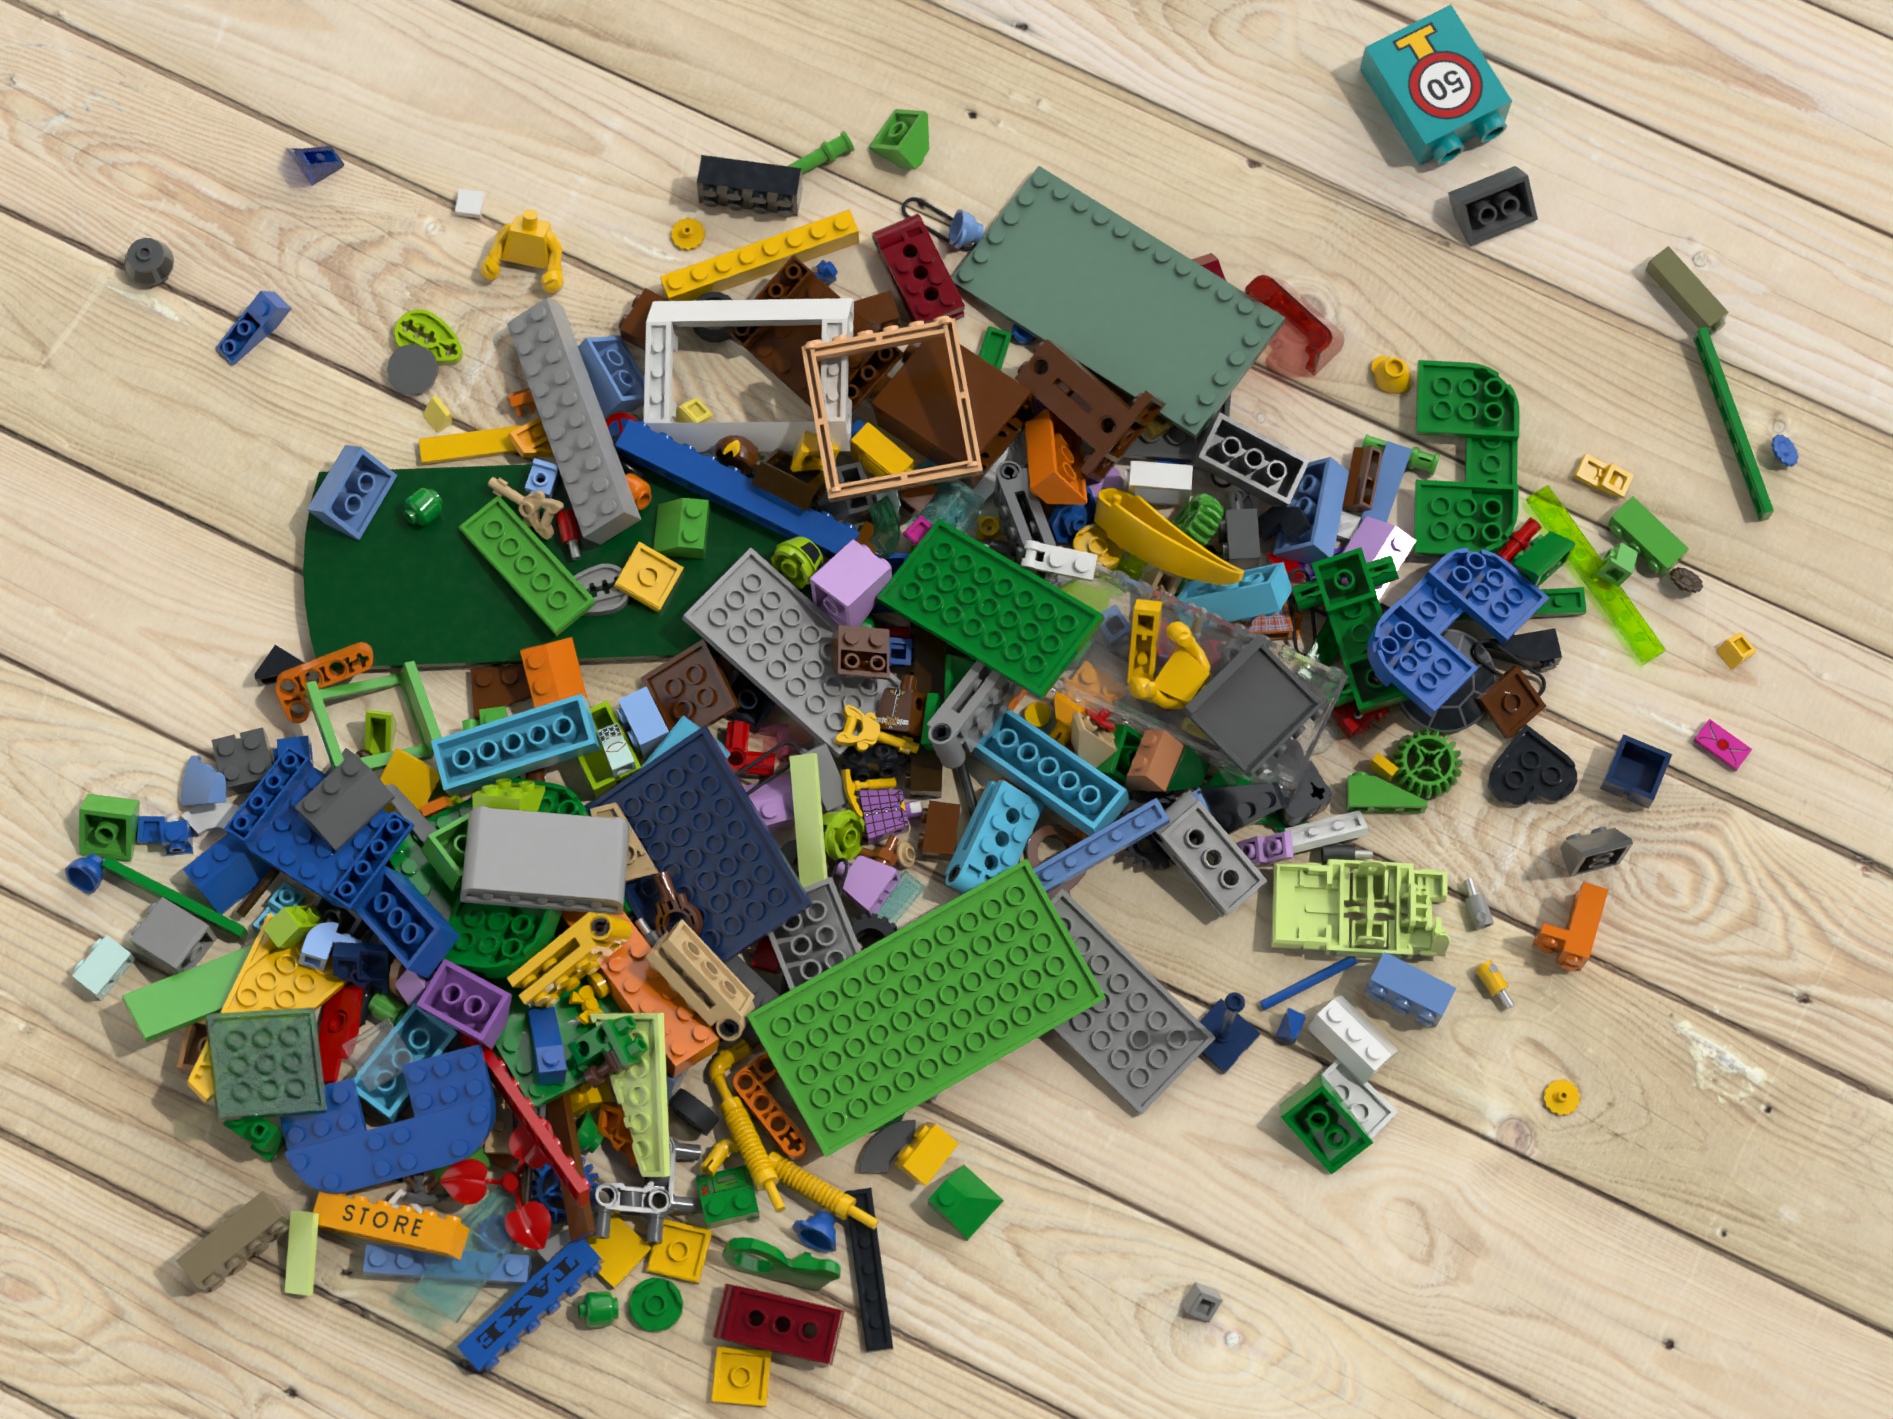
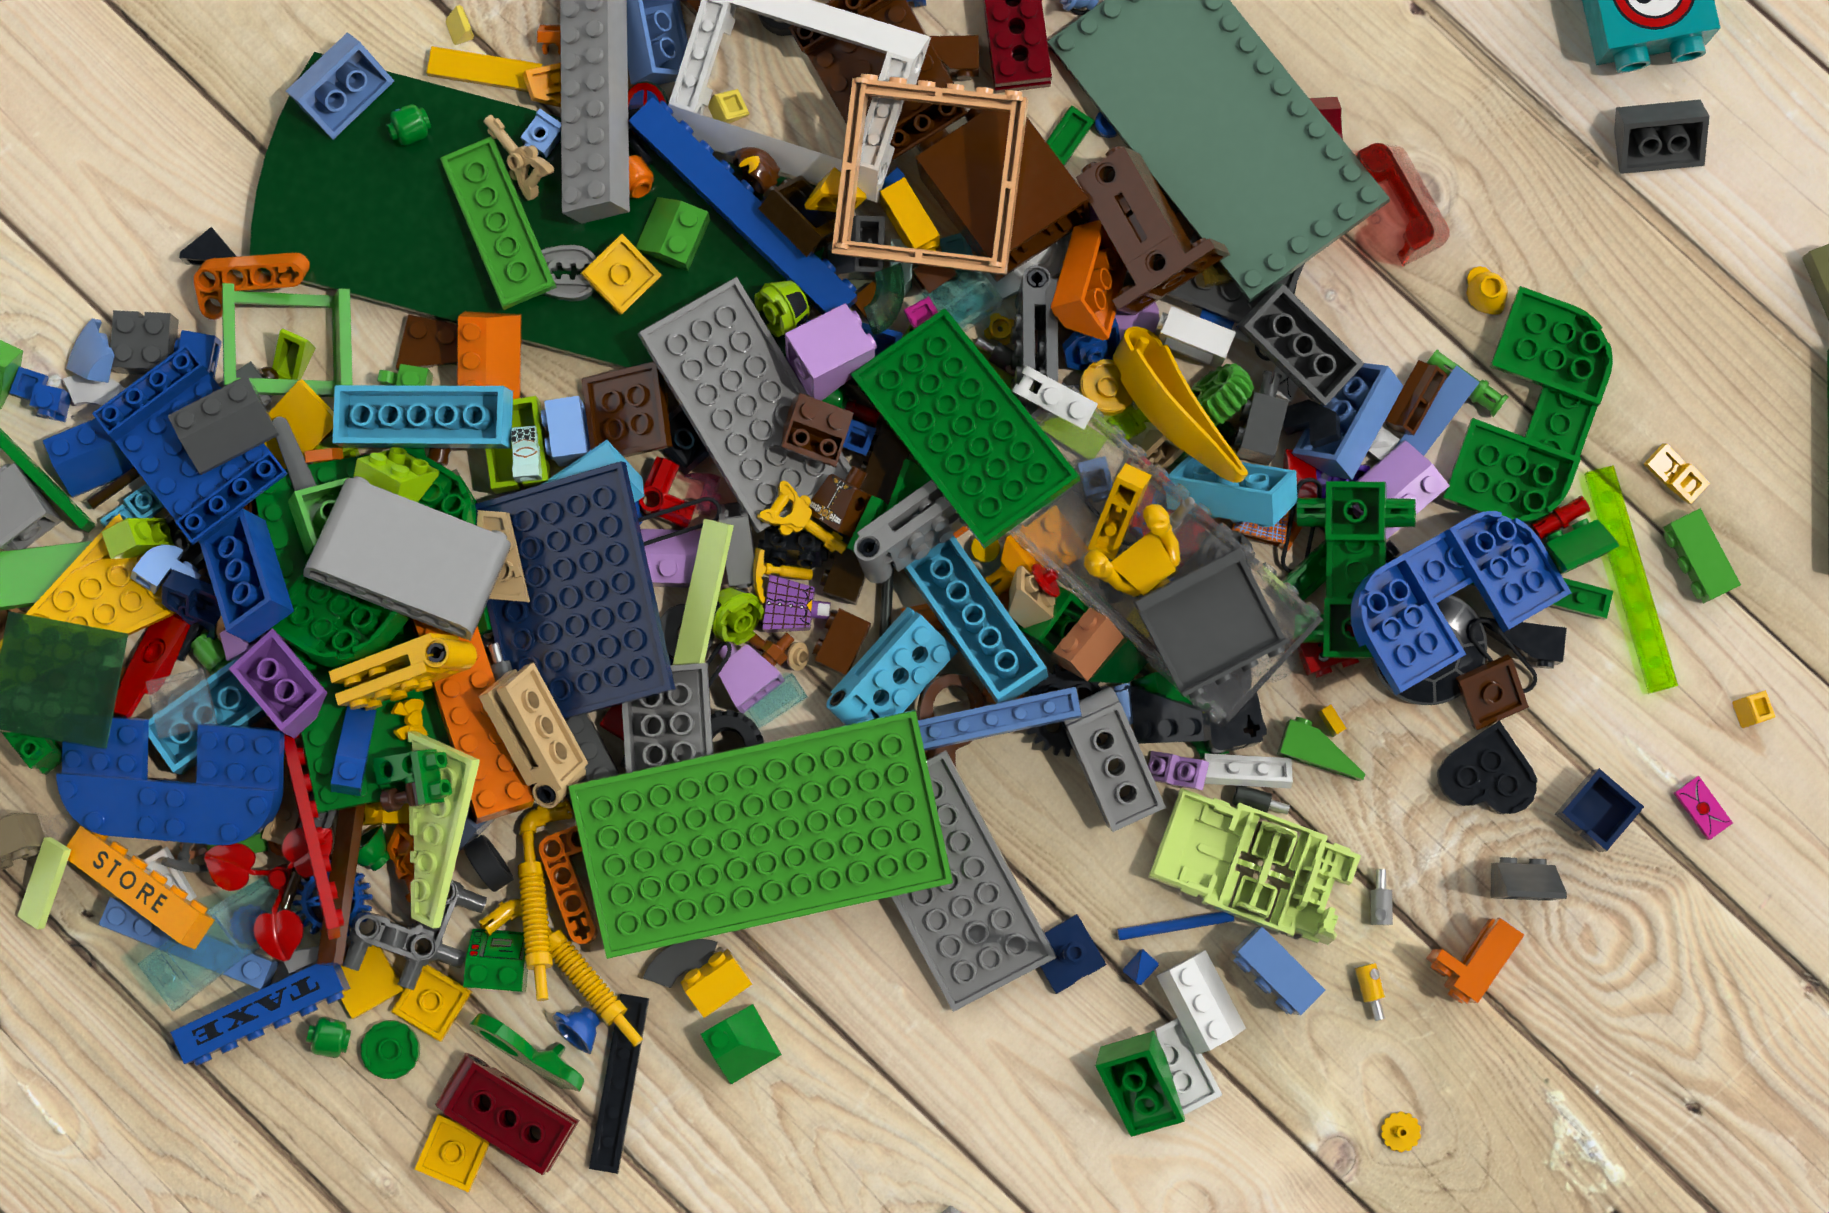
camera: 20 degrees right, 10 degrees up
(569, 531) = (553, 200): red piece -> none
(599, 983) = (430, 701): yellow tile -> none
(679, 902) = (532, 639): reddish brown pin -> none
(1434, 772) = (1385, 742): bright green gear -> none
(1618, 564) = (1659, 577): bright green brick -> none
(1686, 580) = (1726, 616): dark brown piece -> none

